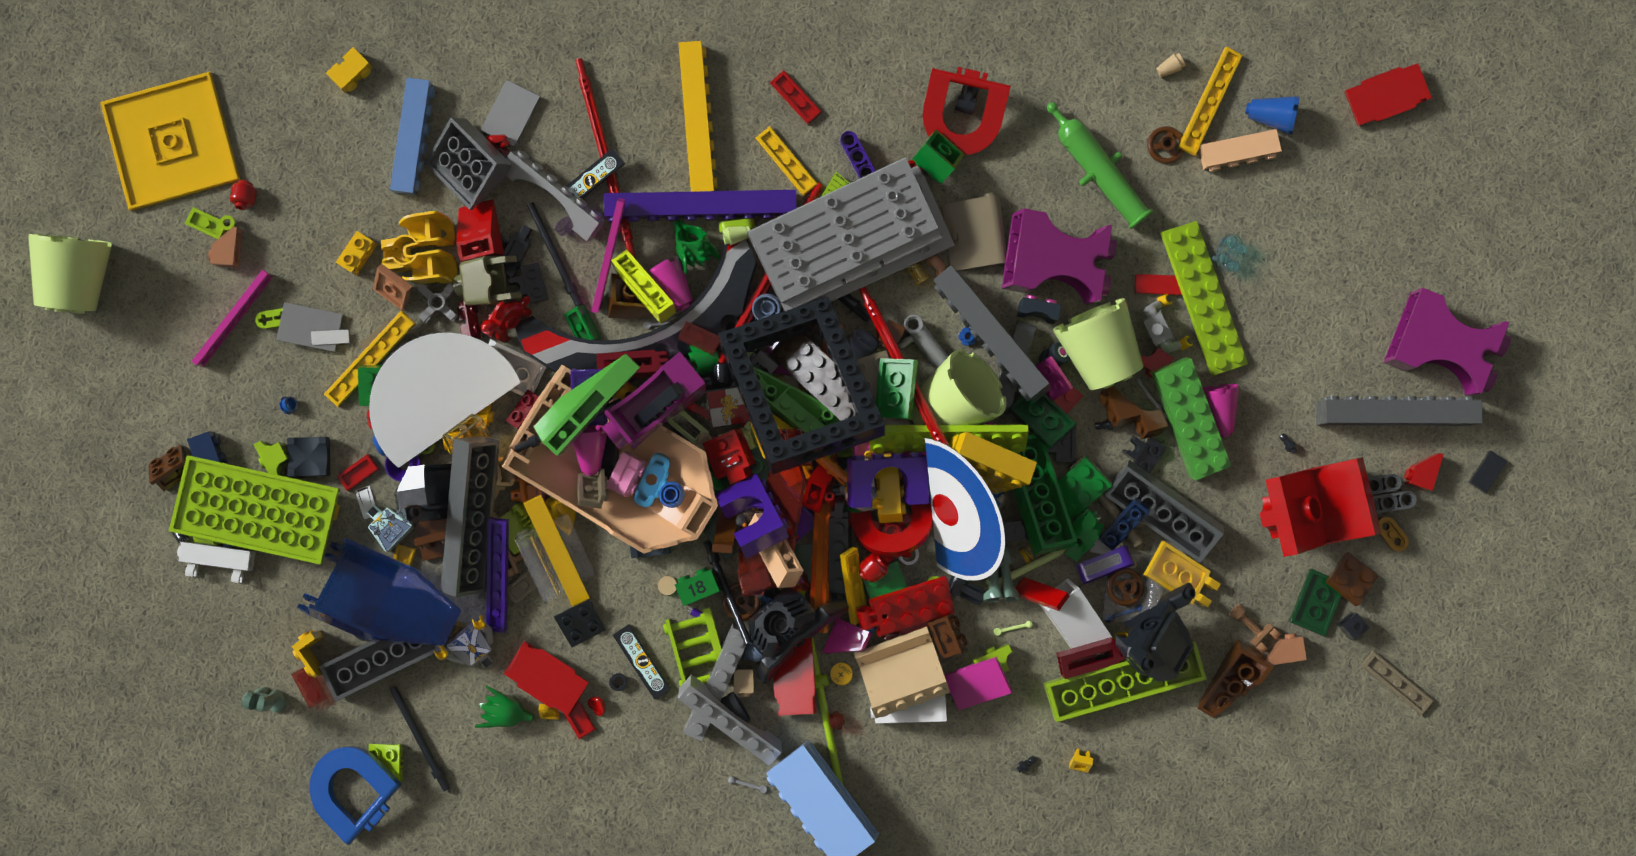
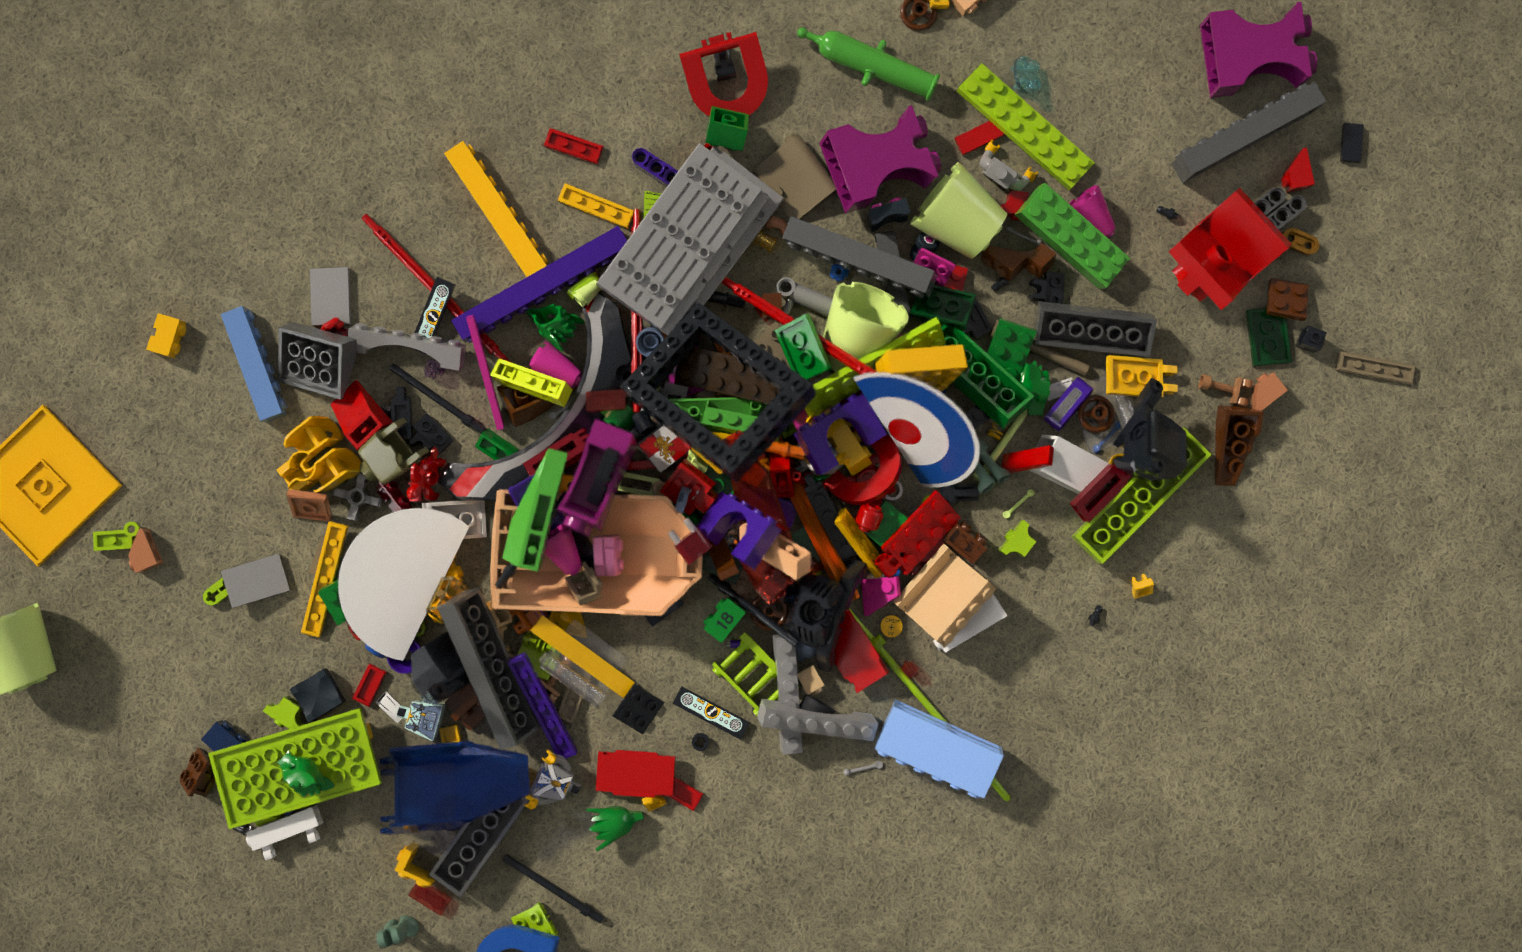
camera: 25 degrees left, 0 degrees up
(232, 319) = (183, 611): dark pink tile -> none
(243, 195) = (132, 497): red head -> none
(258, 520) = (303, 775): none -> green piece
(288, 404) = (274, 659): blue plate -> none
(329, 337) = (278, 579): white sticker -> none
(356, 253) = (261, 492): yellow brick -> none
(522, 409) = (483, 551): dark red hinge -> none
(597, 705) = (693, 771): red piece -> none
(646, 493) = (633, 563): dark azure piece -> none
(667, 585) = (696, 633): tan tile -> none
(672, 494) = (657, 551): blue cone -> none
(706, 506) = (692, 545): none -> dark red piece
(718, 461) = (682, 499): none -> sand blue tile
(862, 343) = (751, 327): sand blue helmet -> none
(977, 683) = (1015, 568): dark pink tile -> none
(1131, 517) = (1067, 349): dark blue tile -> none

